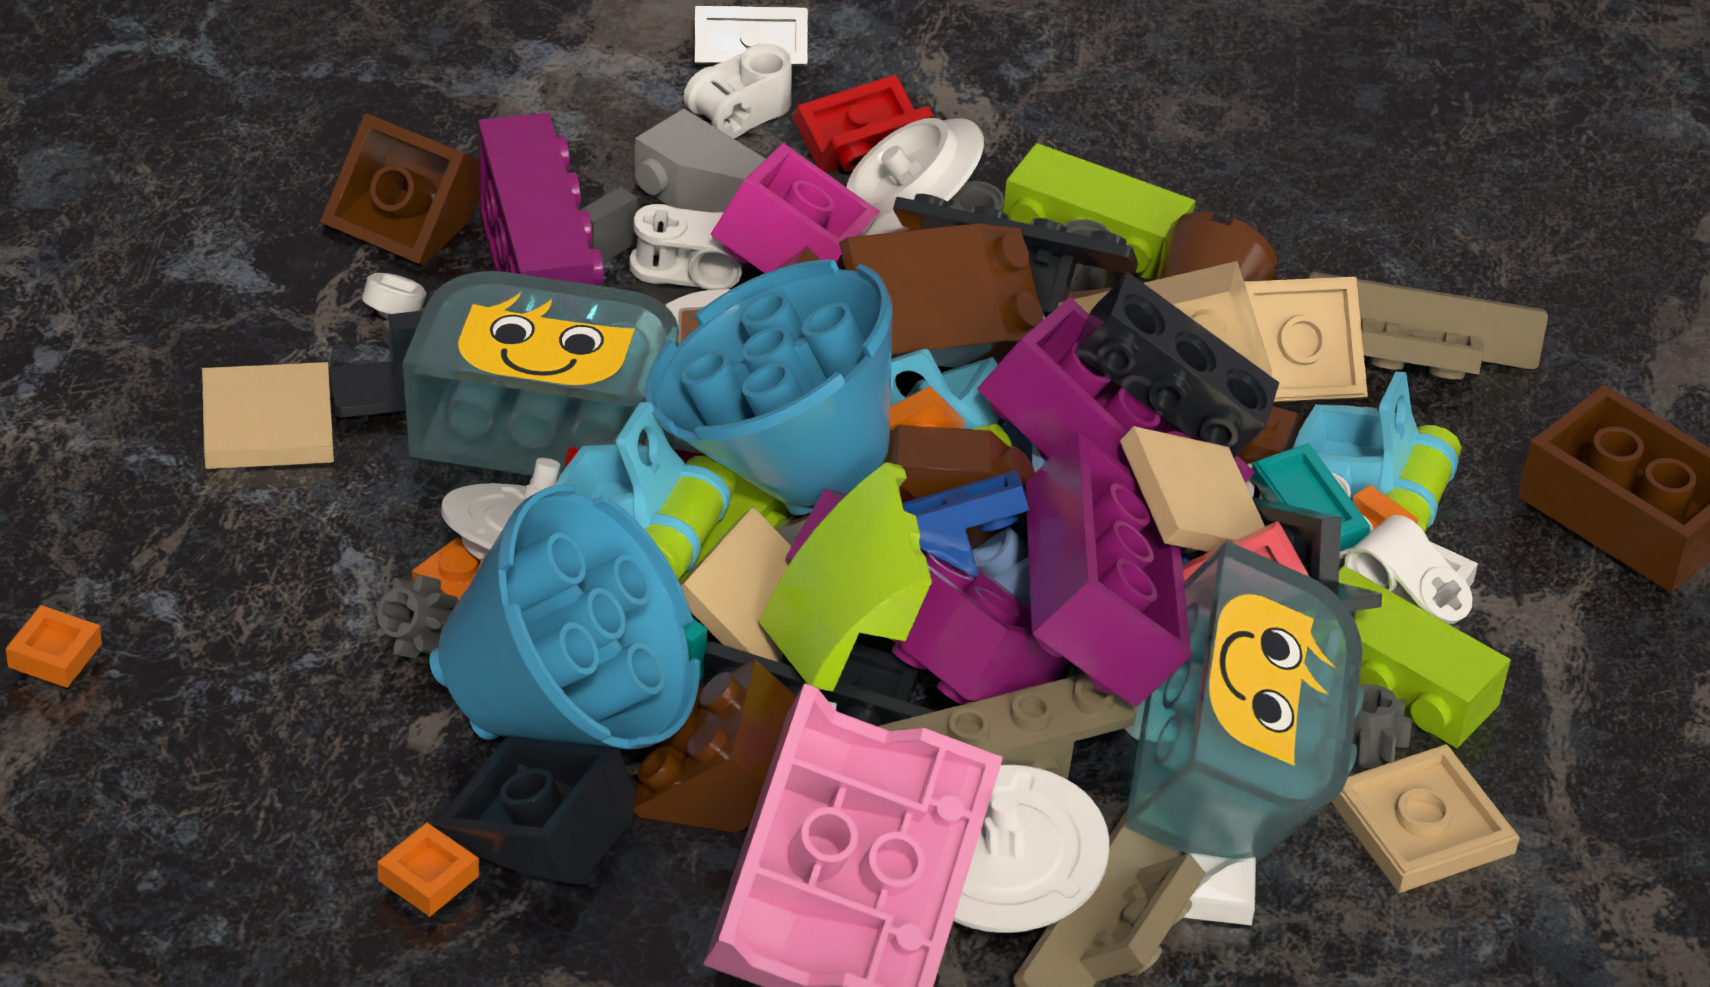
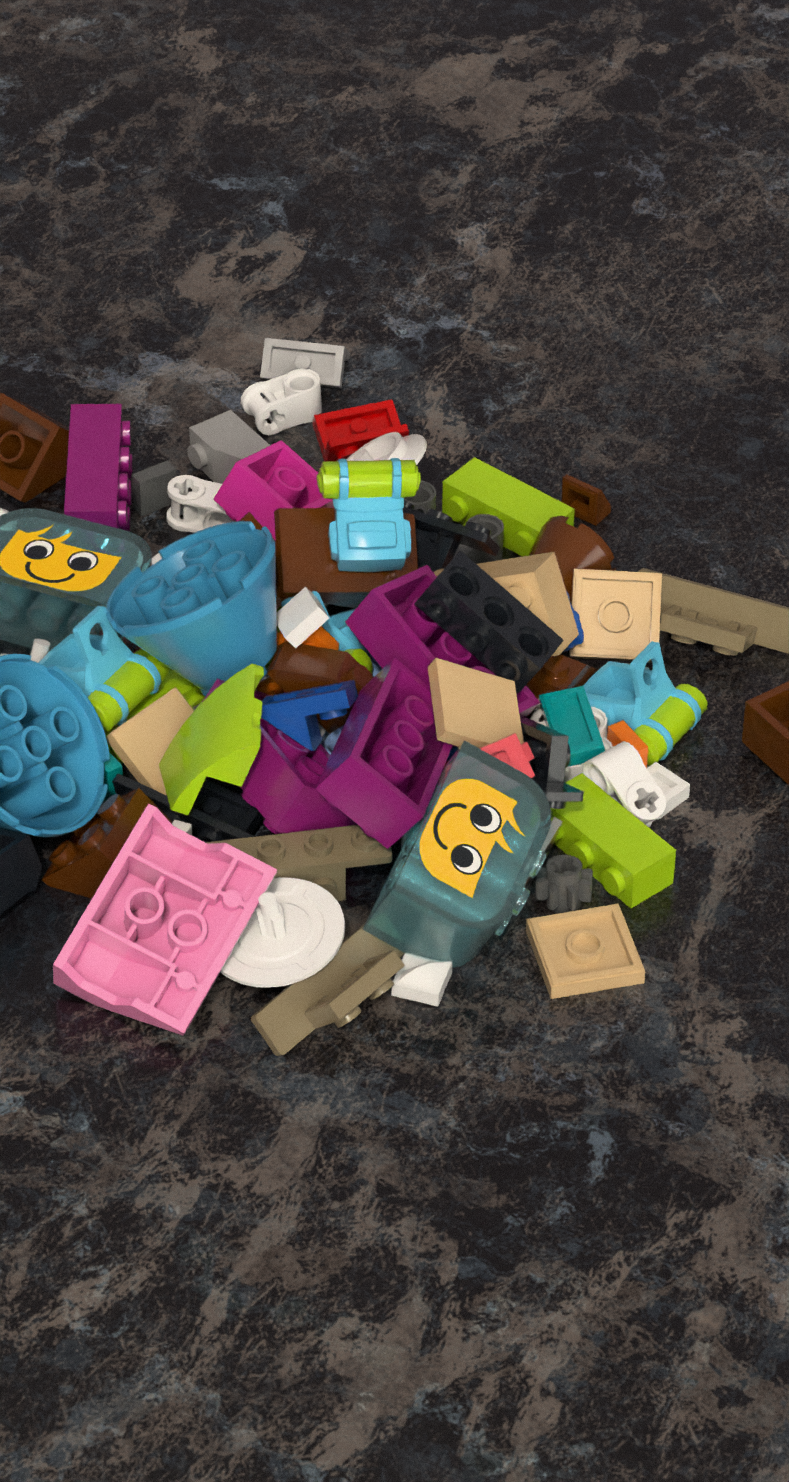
camera: 15 degrees right, 0 degrees up
(921, 388) = (301, 617): none -> white tile
(977, 230) = (369, 512): none -> medium azure piece
(1194, 182) = (586, 499): none -> reddish brown slope

